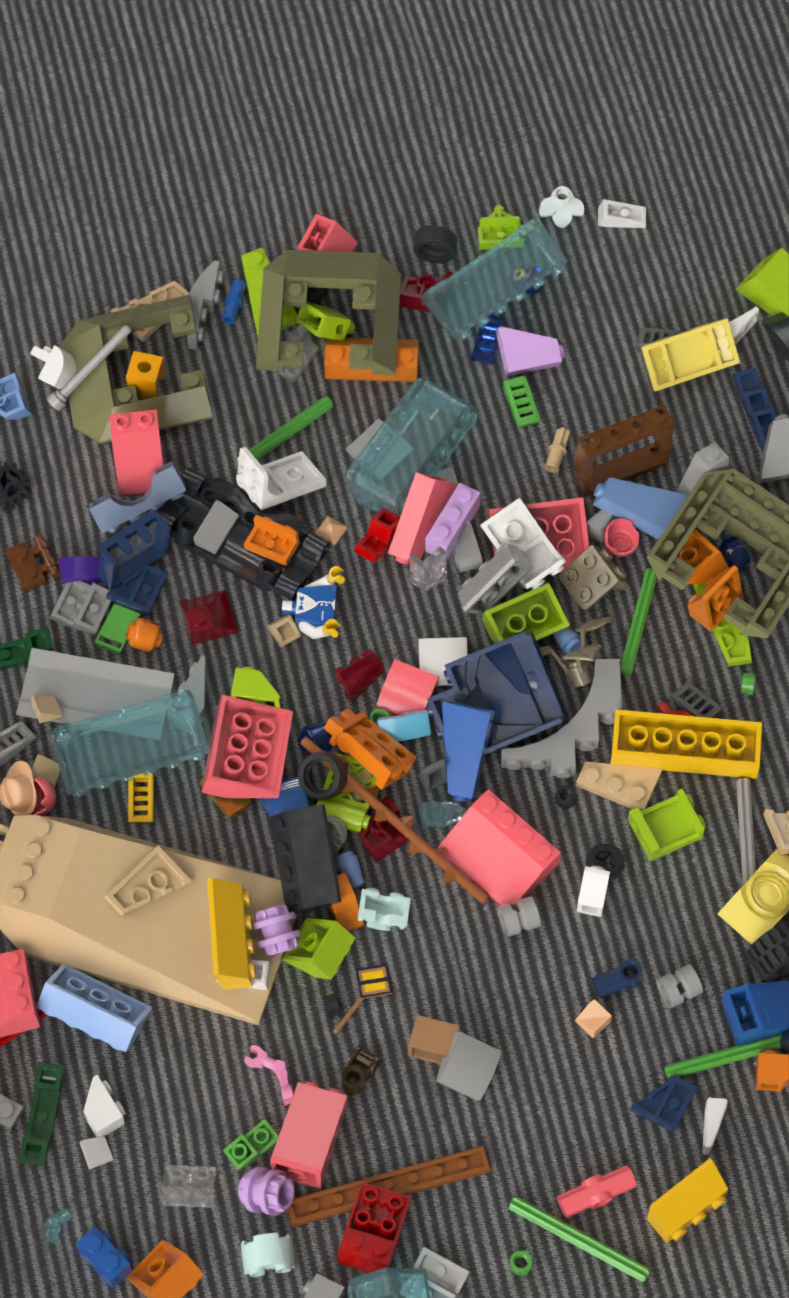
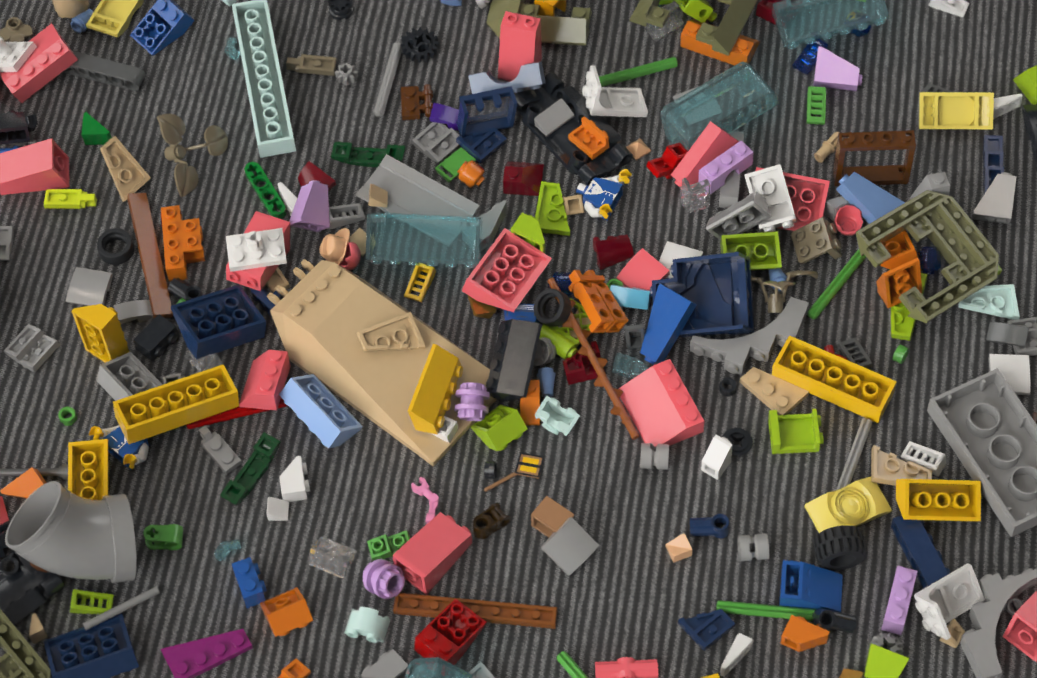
camera: 25 degrees right, 5 degrees down
(261, 647) = (551, 210): none -> lime wing

